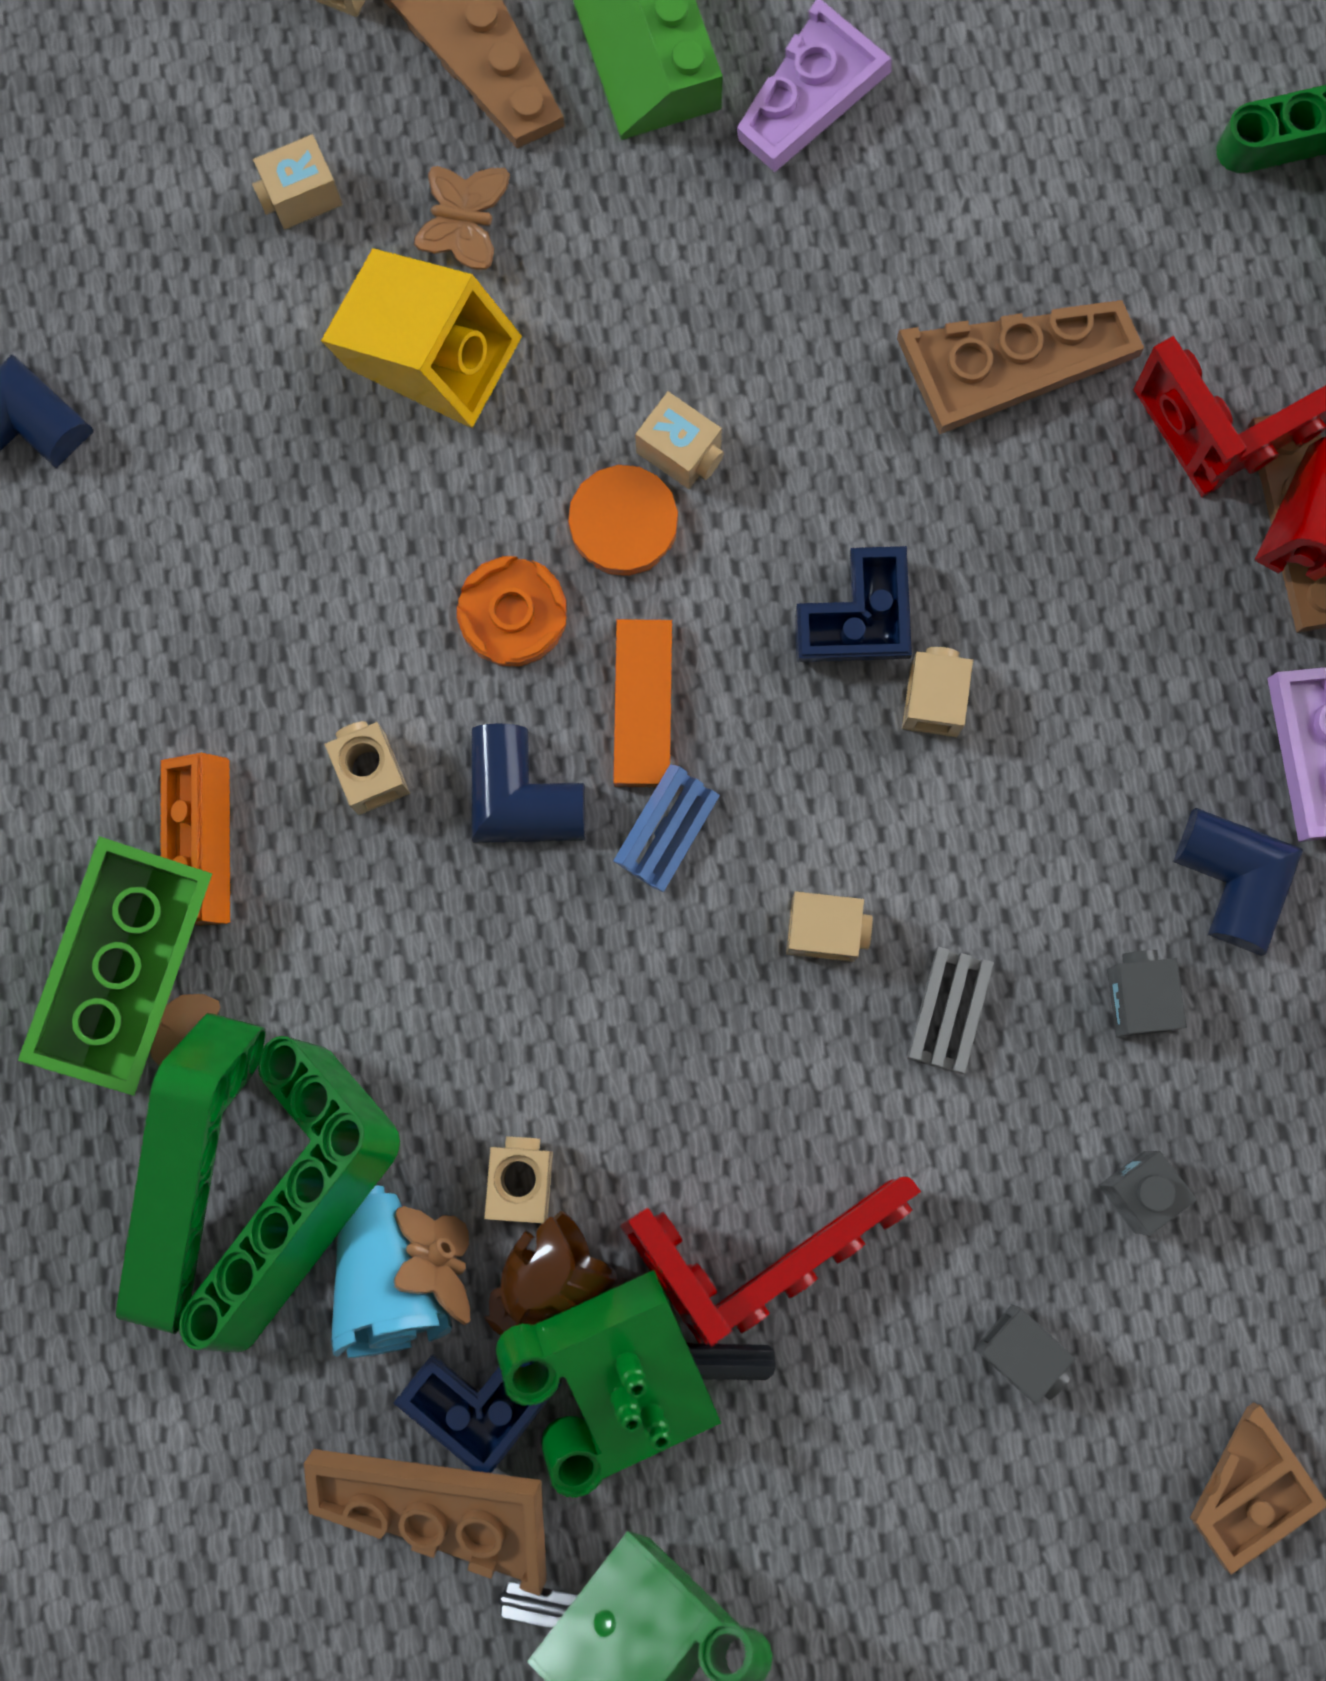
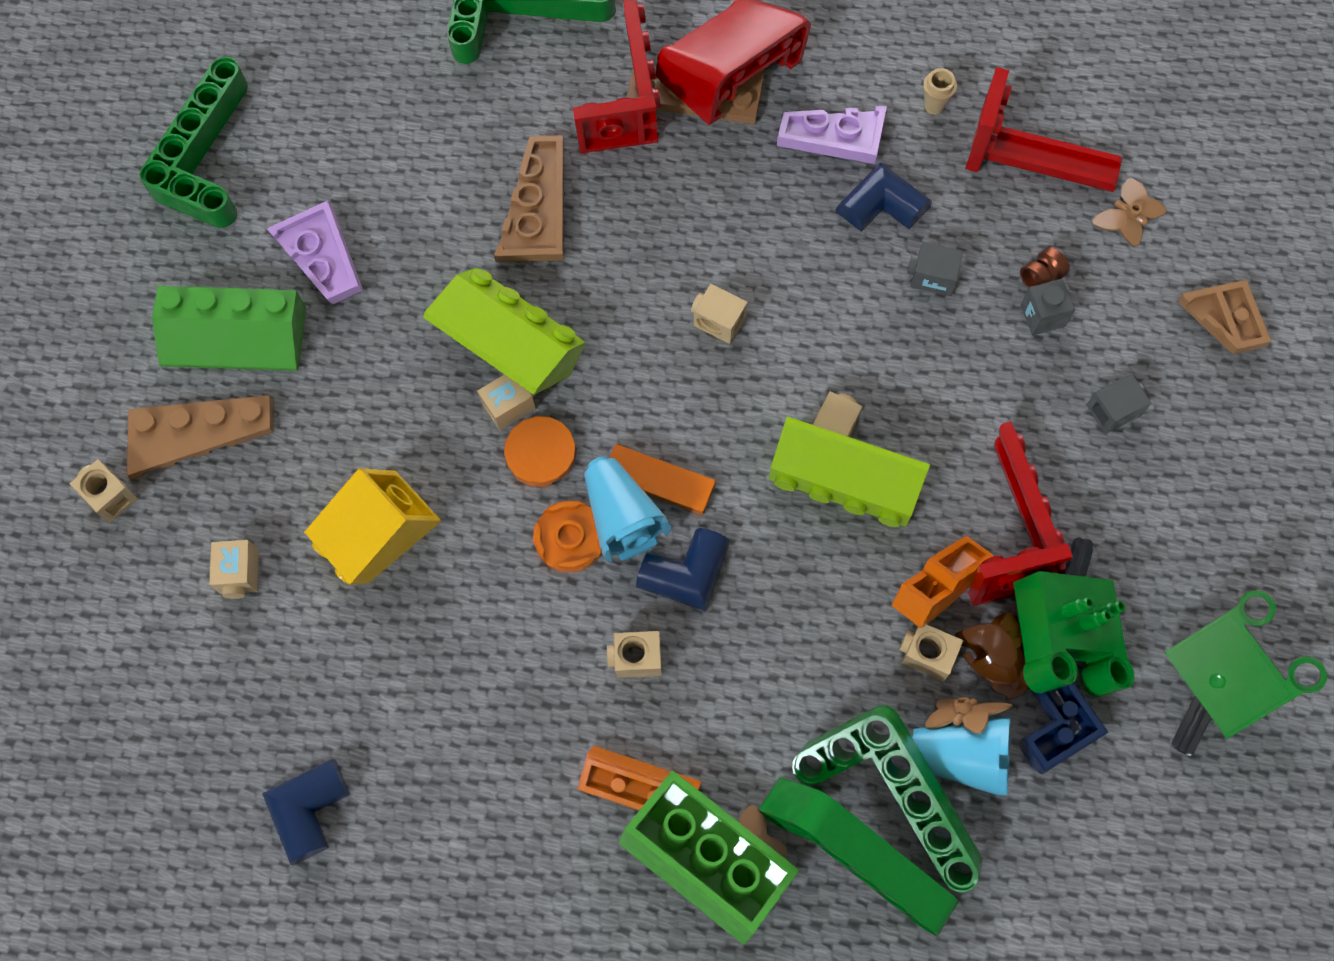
camera: 70 degrees left, 10 degrees down
(460, 214) = (303, 478): medium nougat piece -> none
(461, 1512) = (1123, 756): medium nougat wing -> none
(564, 663) = (622, 511): none -> medium azure cone
(630, 1166) = (940, 581): none -> orange slope
(673, 833) = (742, 491): medium blue tile -> none
(742, 968) = (847, 472): none -> lime slope
(775, 392) = (505, 330): none -> lime slope
(869, 626) = (664, 337): dark blue brick -> none
(963, 963) = (913, 364): light grey tile -> none
(1214, 1170) = (1048, 267): none -> copper wheel

